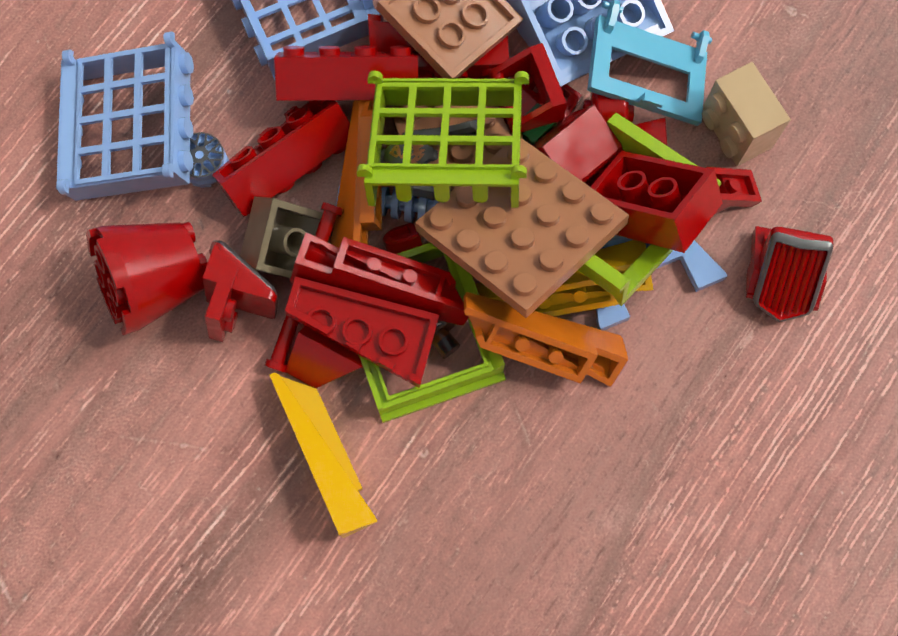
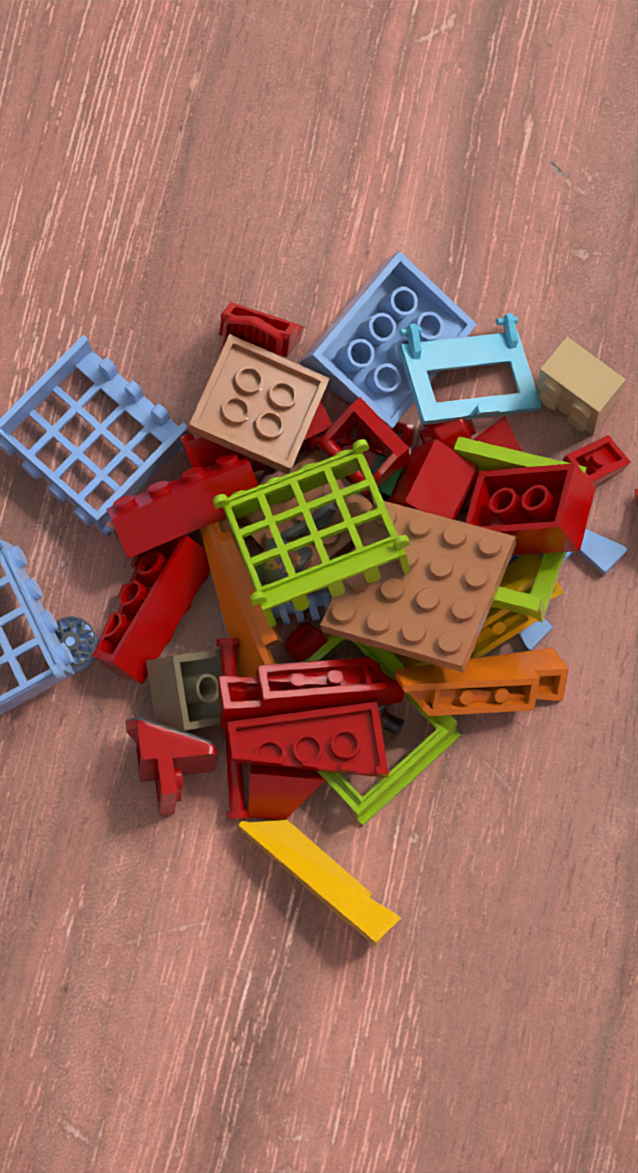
camera: 20 degrees left, 0 degrees up
(145, 270) = (75, 777): red cone -> none

